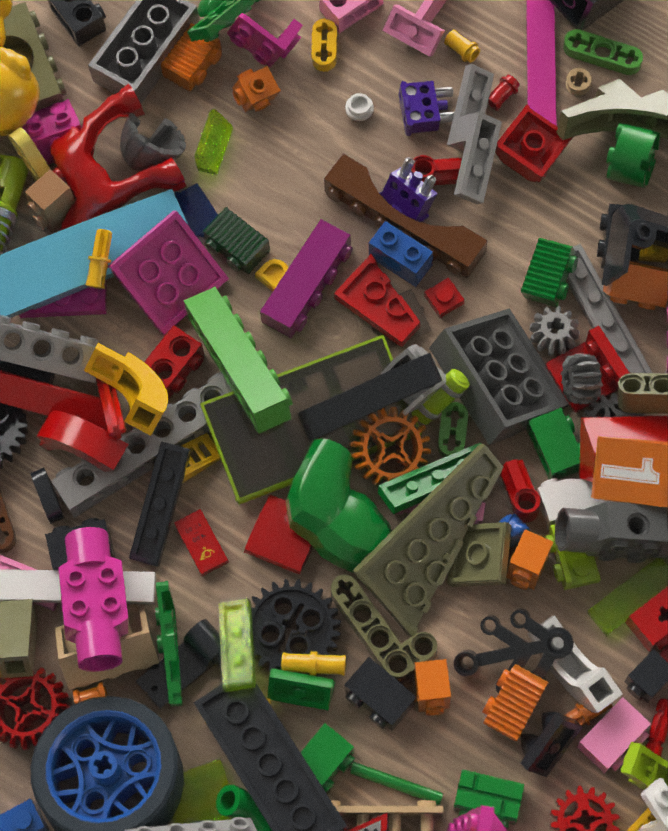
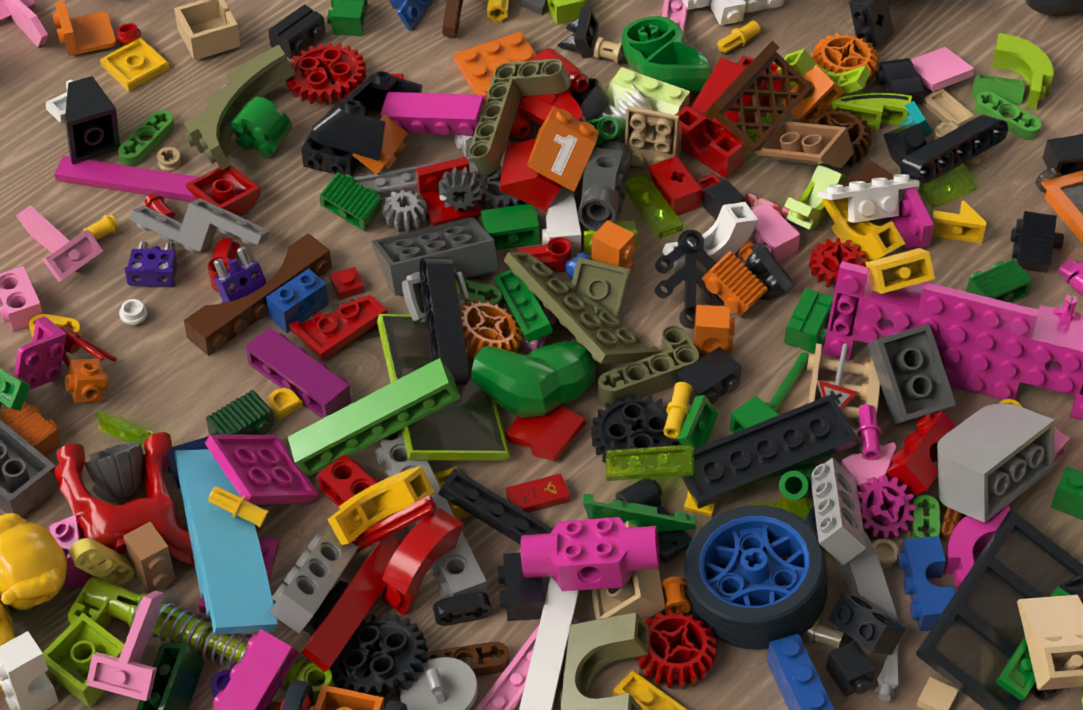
camera: 85 degrees left, 20 degrees down
(298, 59) = (75, 341): none -> red plant

